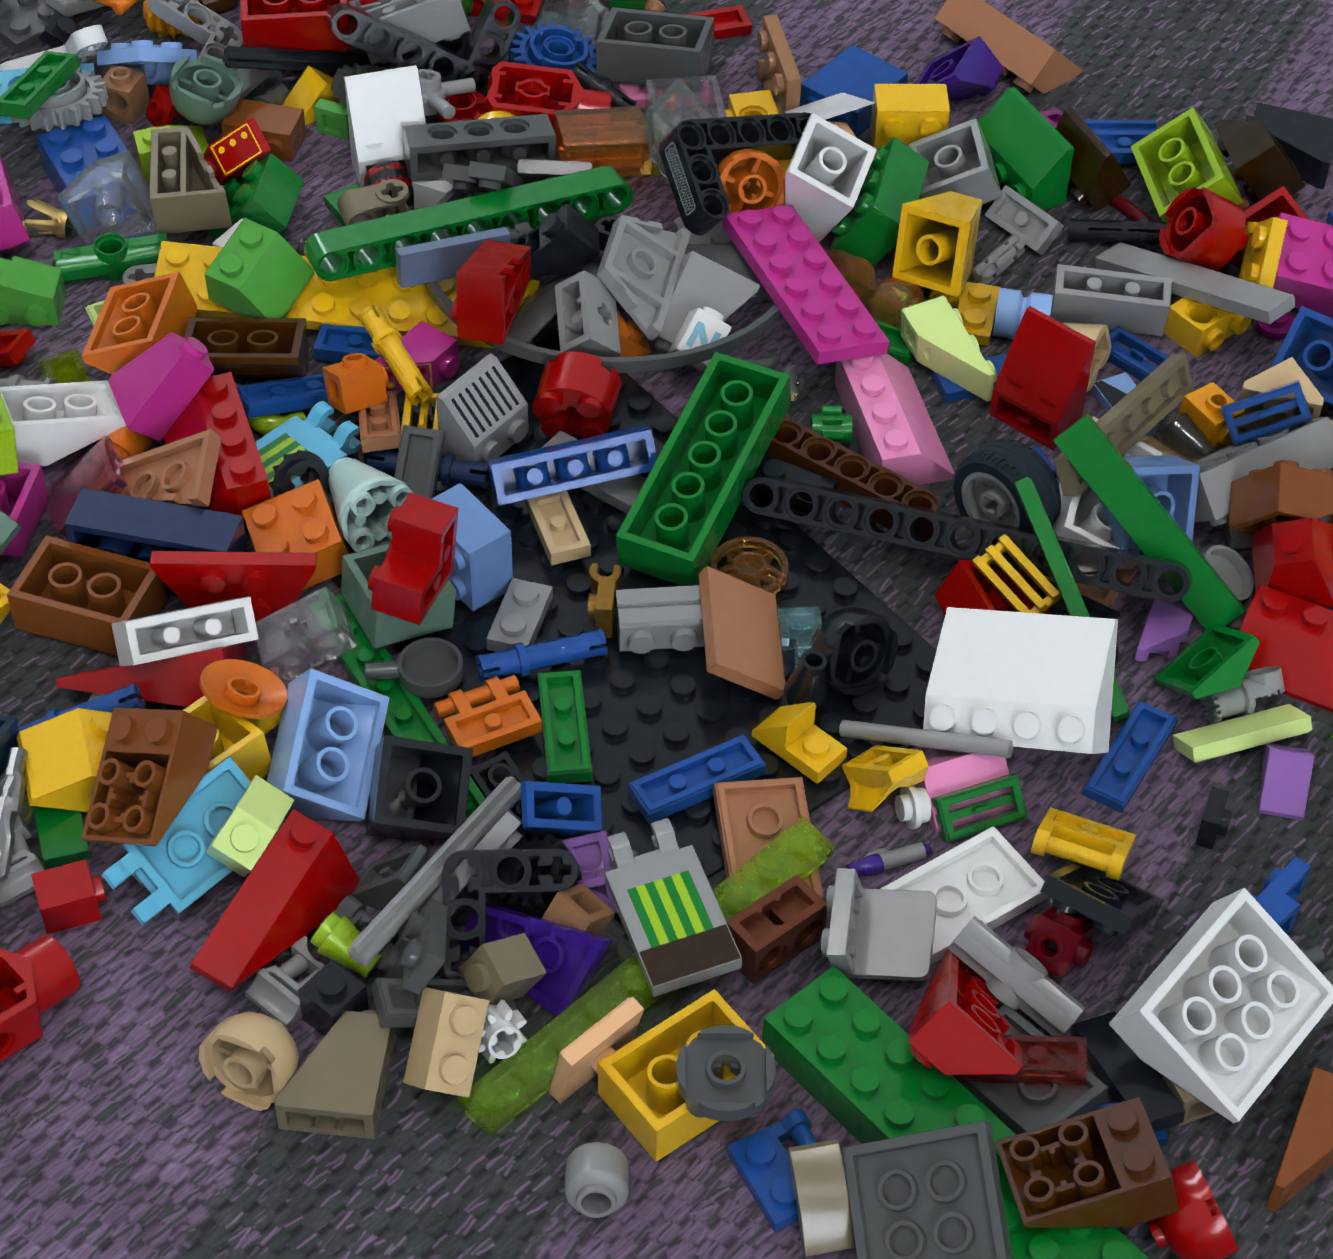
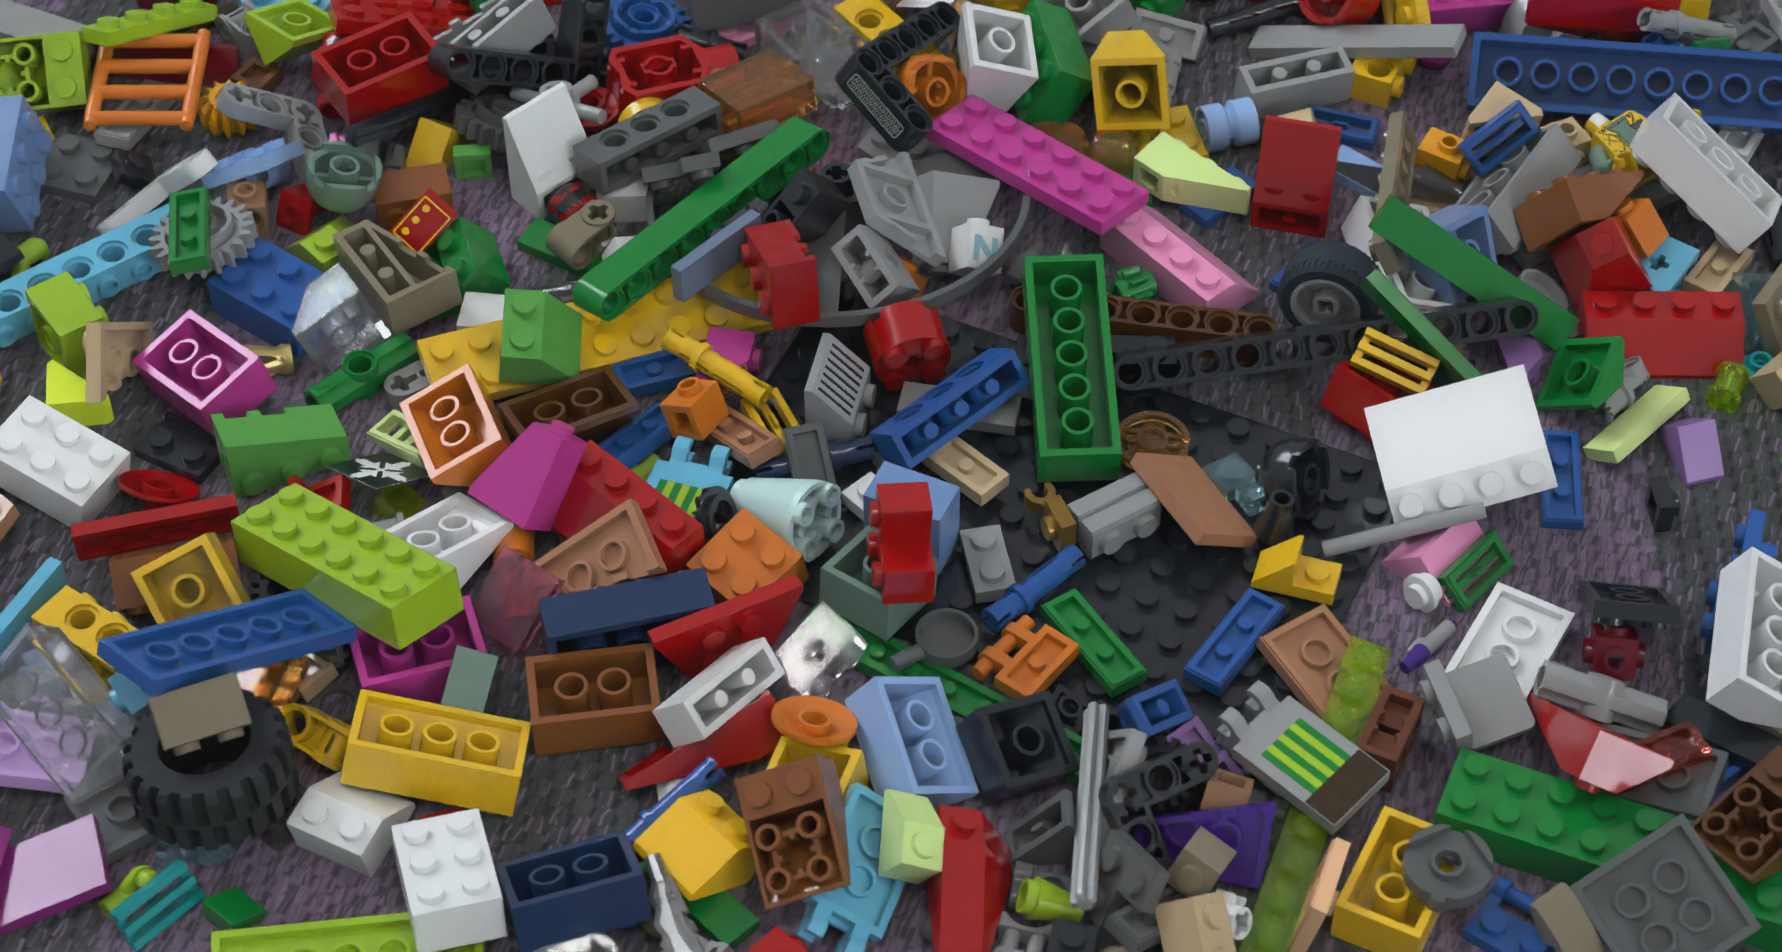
camera: 25 degrees left, 0 degrees up
(57, 337) = (380, 470): none -> black sticker
(881, 772) = (1385, 575): yellow slope -> none
(1084, 842) = (1578, 565): yellow plate -> none

